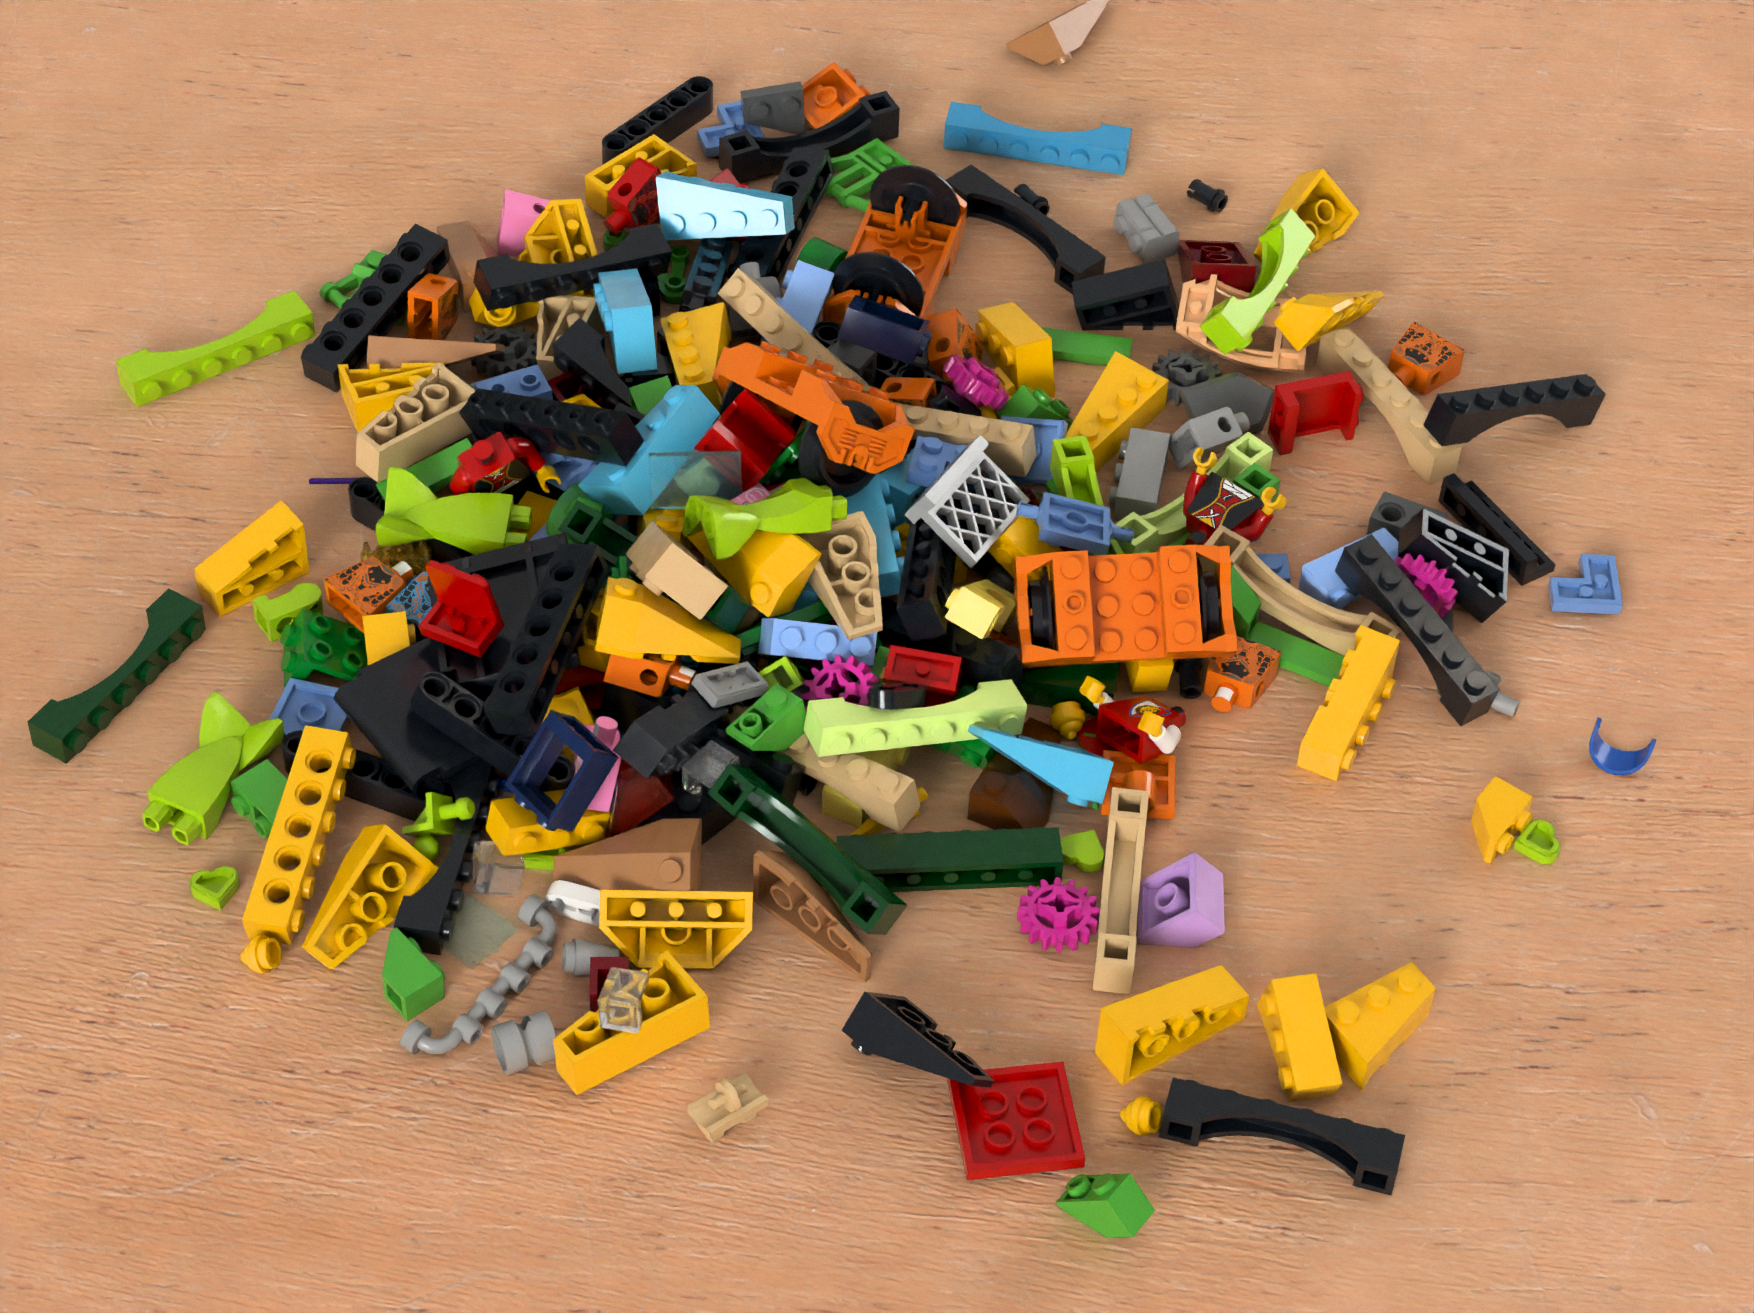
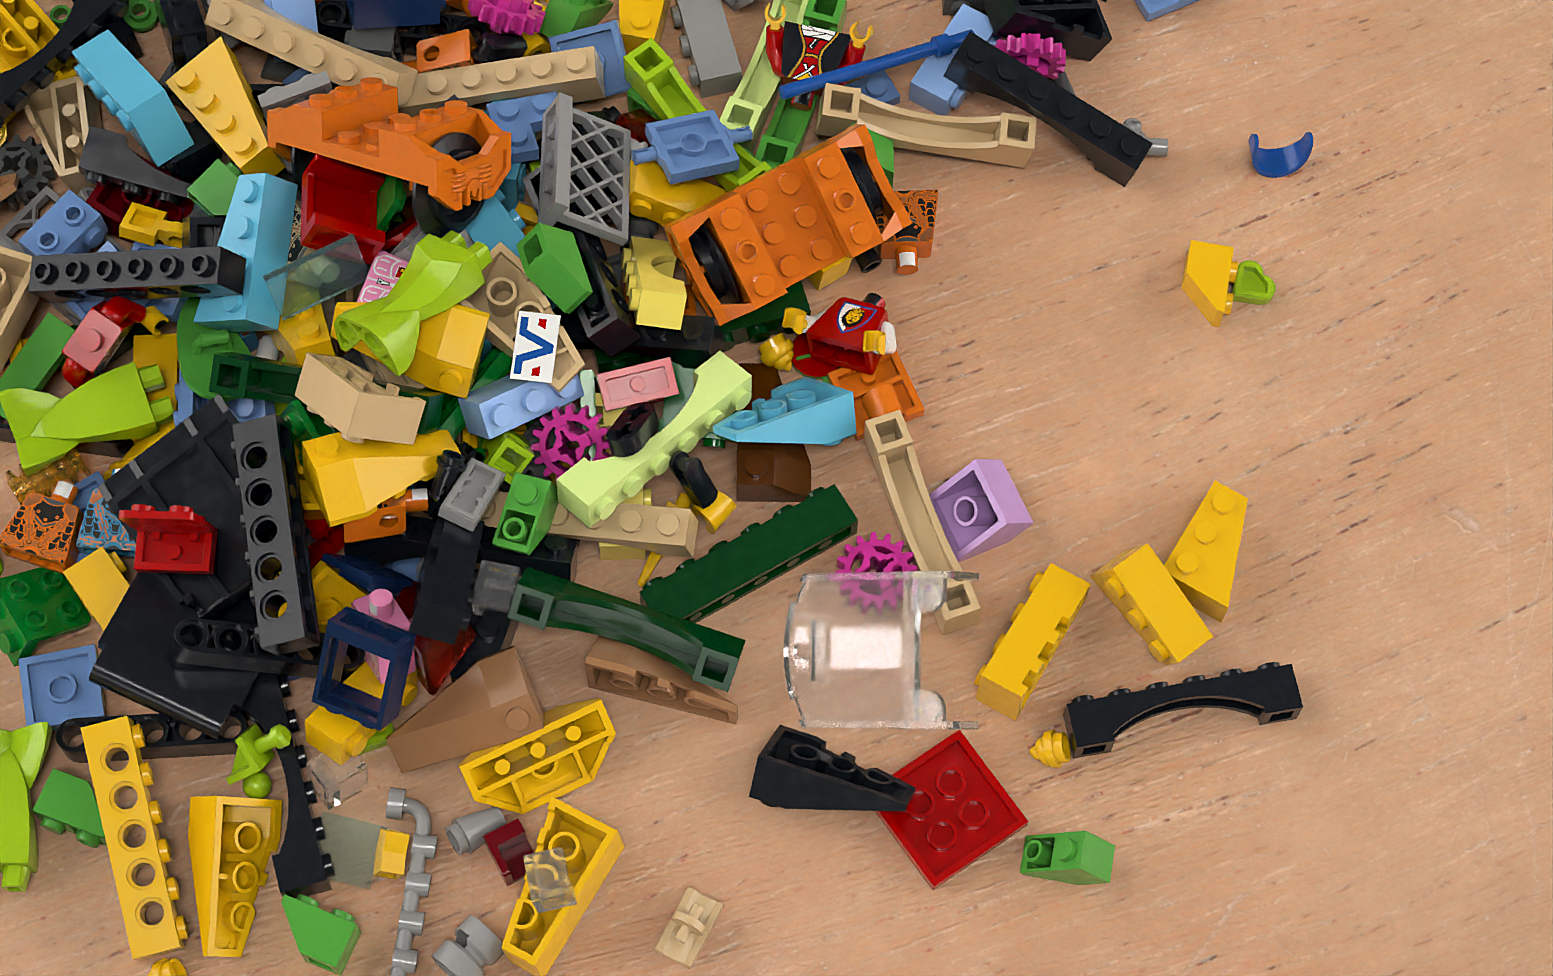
camera: 25 degrees left, 20 degrees up
(215, 886) = (77, 923): lime tile -> none
(505, 944) = (390, 854): none -> yellow piece
(574, 901) = (431, 774): white beam -> none
(604, 707) = (367, 572): none -> dark blue piece
(722, 656) = (447, 473): none -> black pin
(847, 596) = (535, 347): none -> white sticker
(899, 544) = (555, 265): none -> bright green slope
(941, 802) = (707, 500): none -> black piece
(1012, 955) = (858, 650): none -> clear windscreen
(1083, 851) = (861, 489): lime tile -> none
(1266, 532) = (938, 46): none -> blue bar
(1298, 654) = (949, 177): bright green tile -> none
(1350, 705) = (1026, 220): yellow wedge -> none

